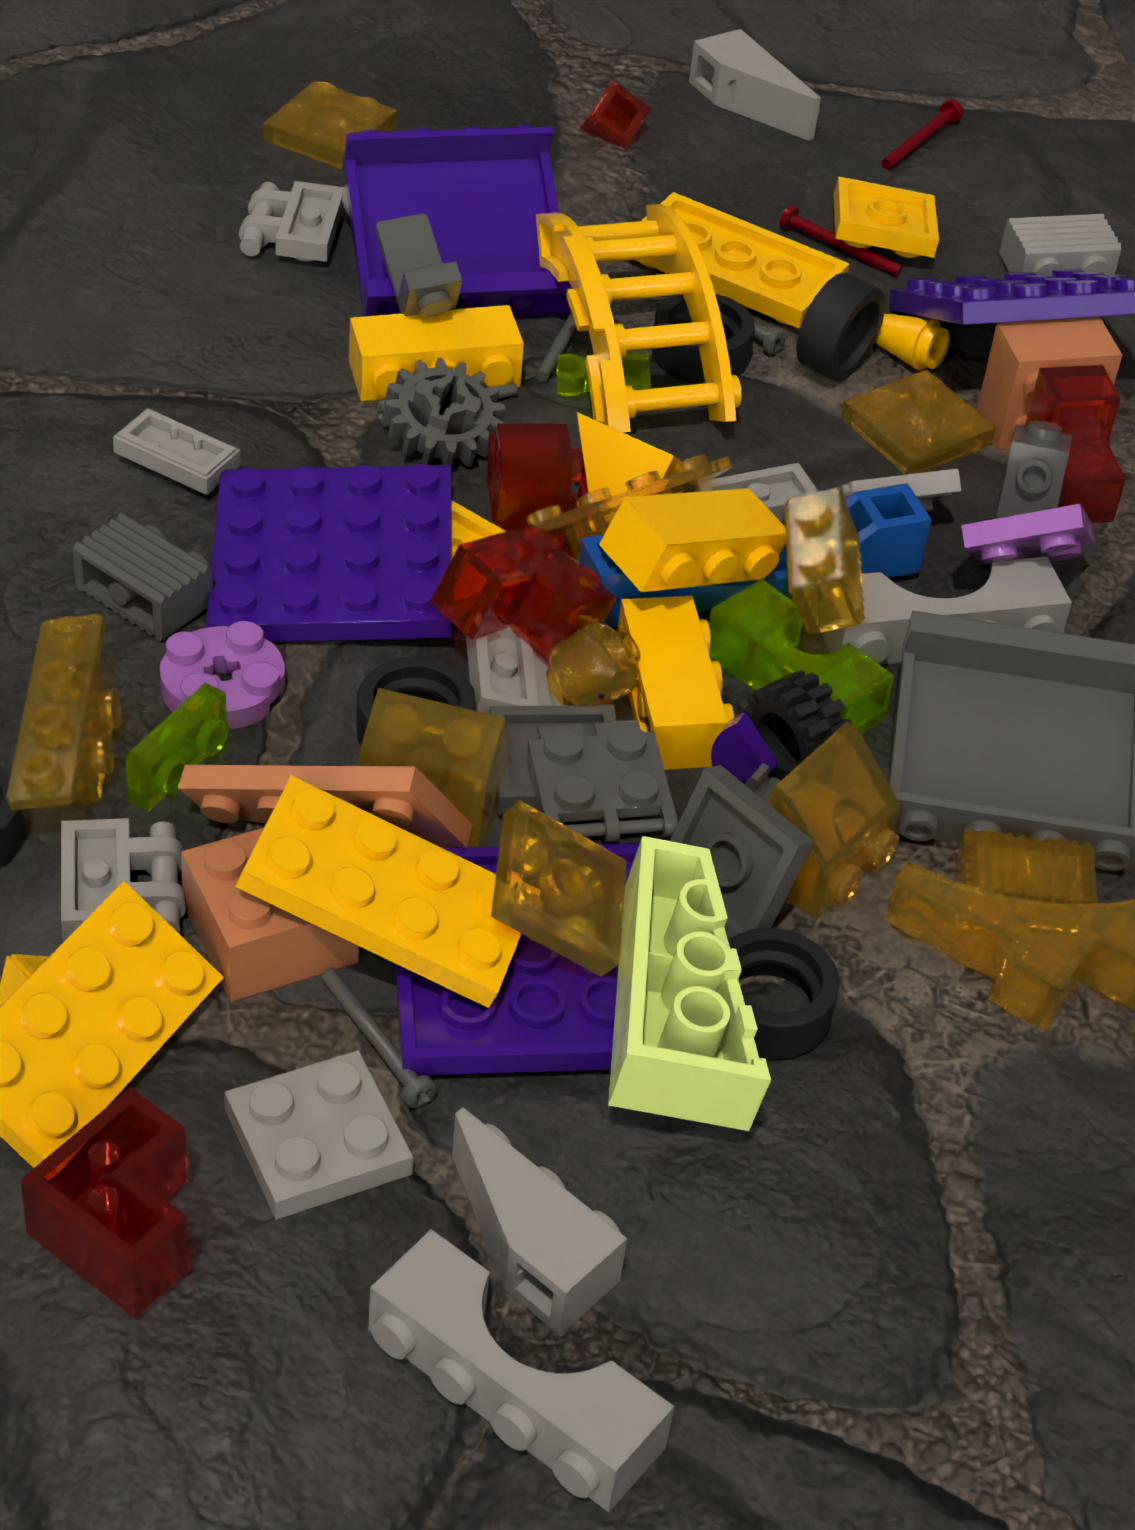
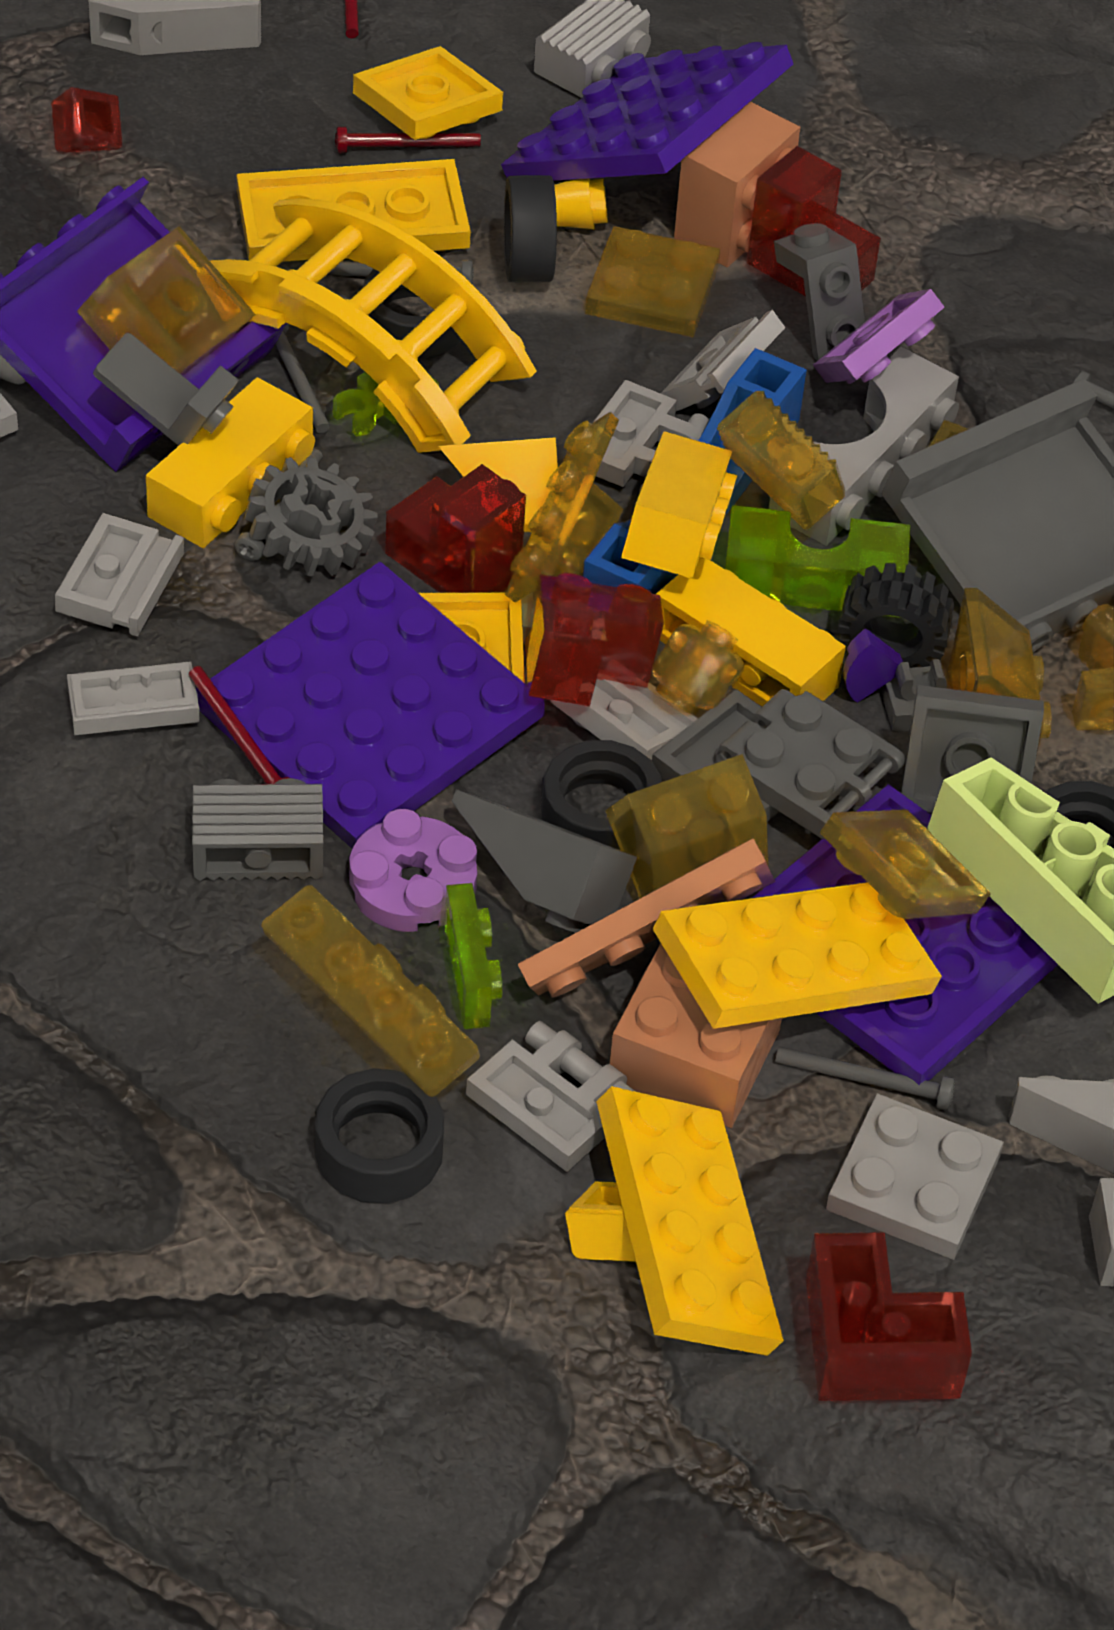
camera: 40 degrees left, 5 degrees up
(216, 504) = (234, 726): none -> dark red piece
(270, 376) = (119, 574): none -> light grey plate
(311, 712) = (548, 864): none -> dark grey slope
(486, 216) = (168, 302): none -> clear yellow slope

